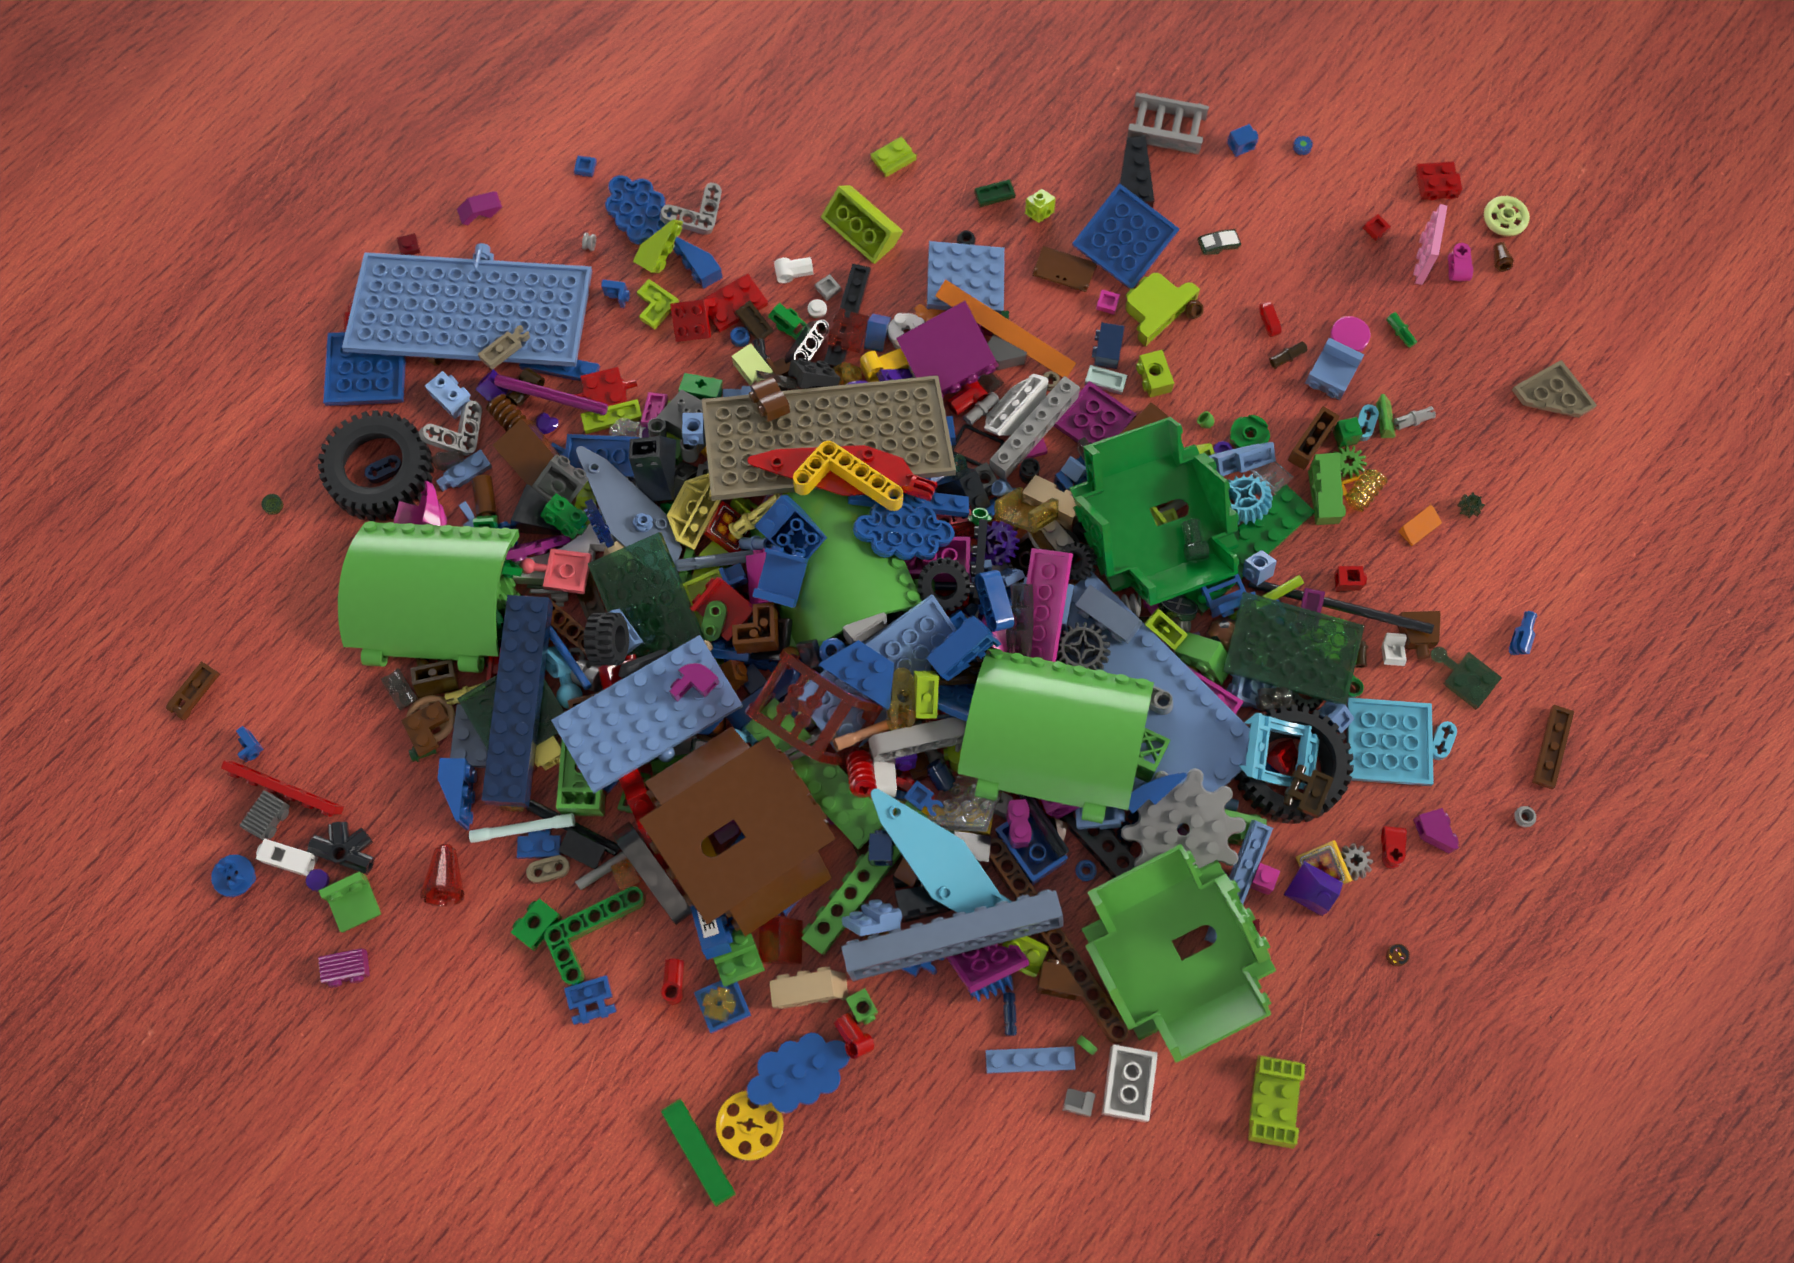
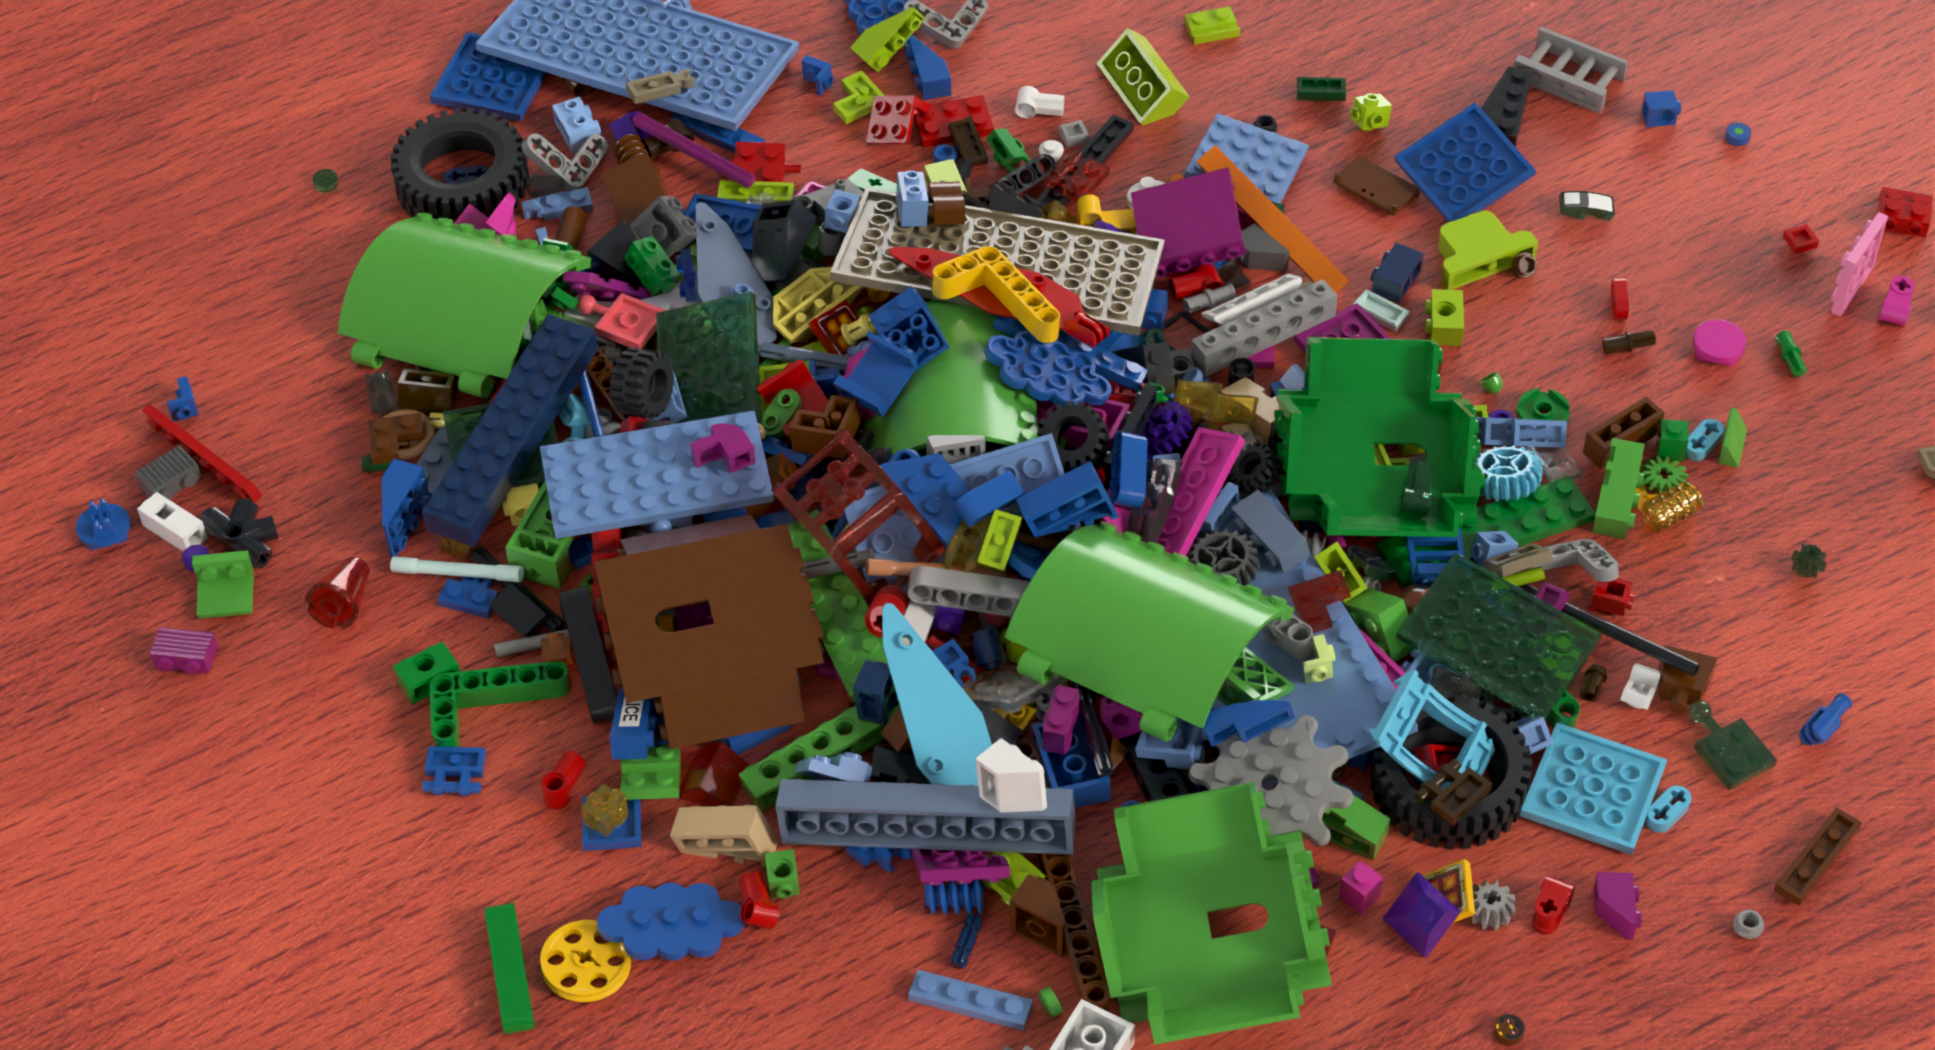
camera: 20 degrees right, 20 degrees down
(192, 690) = (147, 333): reddish brown plate -> none
(545, 423) = (676, 182): dark purple rock -> none
(548, 869) = (468, 621): dark tan plate -> none
(589, 241) = (808, 19): light grey bush -> none
(744, 404) = (912, 198): none -> medium blue brick
(877, 332) = (1113, 190): blue slope -> none
(907, 665) = (984, 499): none -> blue beam
(1014, 906) = (1010, 779): none -> white slope
(1108, 302) = (1416, 230): dark pink plate -> none
(1156, 662) = (1313, 596): none -> clear red plate
(1185, 711) = (1321, 667): none -> yellowish green bracket
(1248, 862) = (1347, 851): medium blue tile -> none
(1282, 575) = (1518, 560): none -> dark tan plate
(1291, 563) = (1586, 554): none -> light grey beam
(1334, 369) = (1684, 372): medium blue panel -> none
(1414, 418) = (1771, 450): light grey pin -> none
(1420, 525) = (1732, 566): orange slope -> none

